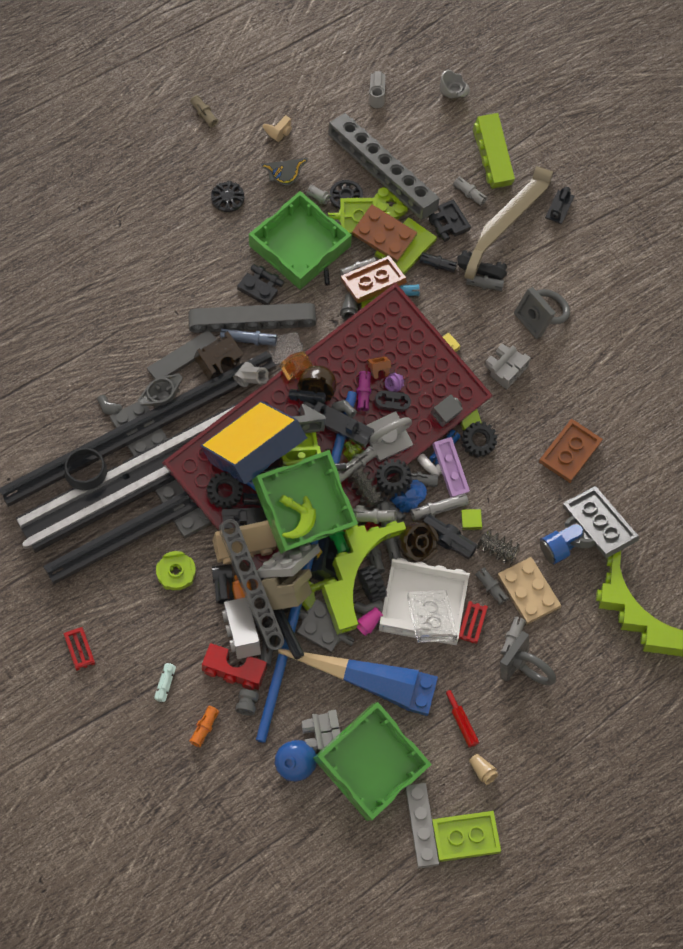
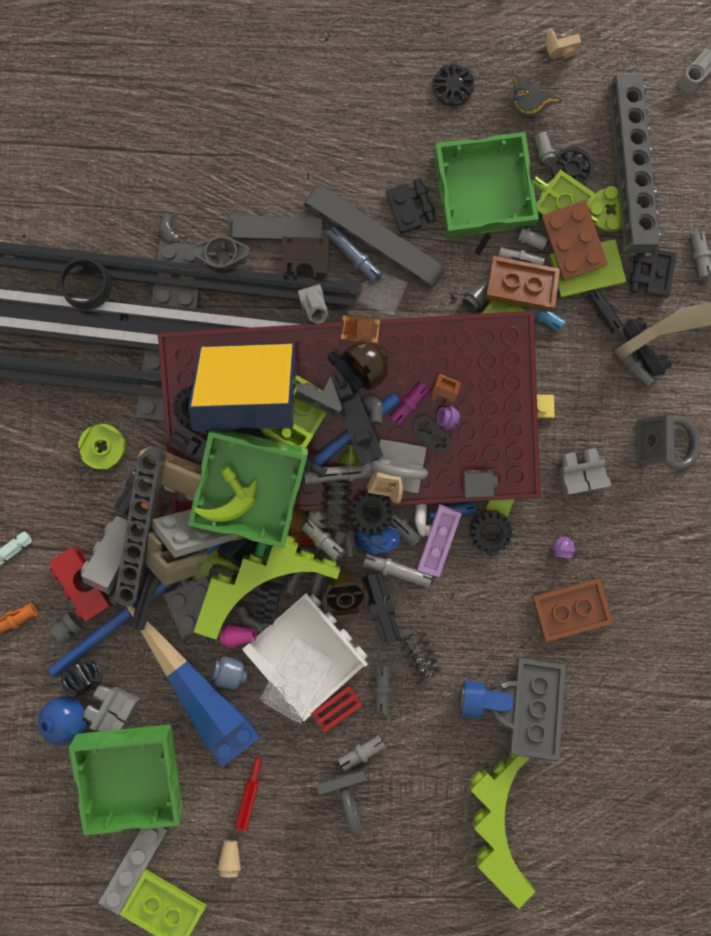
camera: 40 degrees right, 20 degrees up
(286, 723) = (81, 678): none -> black gear
(357, 251) = (532, 238): none -> light grey pin
(382, 649) = (229, 672): none -> sand blue head
(390, 449) = (386, 485): none -> tan plate
(471, 519) = (418, 605): lime tile -> none
(529, 590) = (415, 718): tan plate -> none
(533, 418) = (563, 548): none -> medium lavender plate

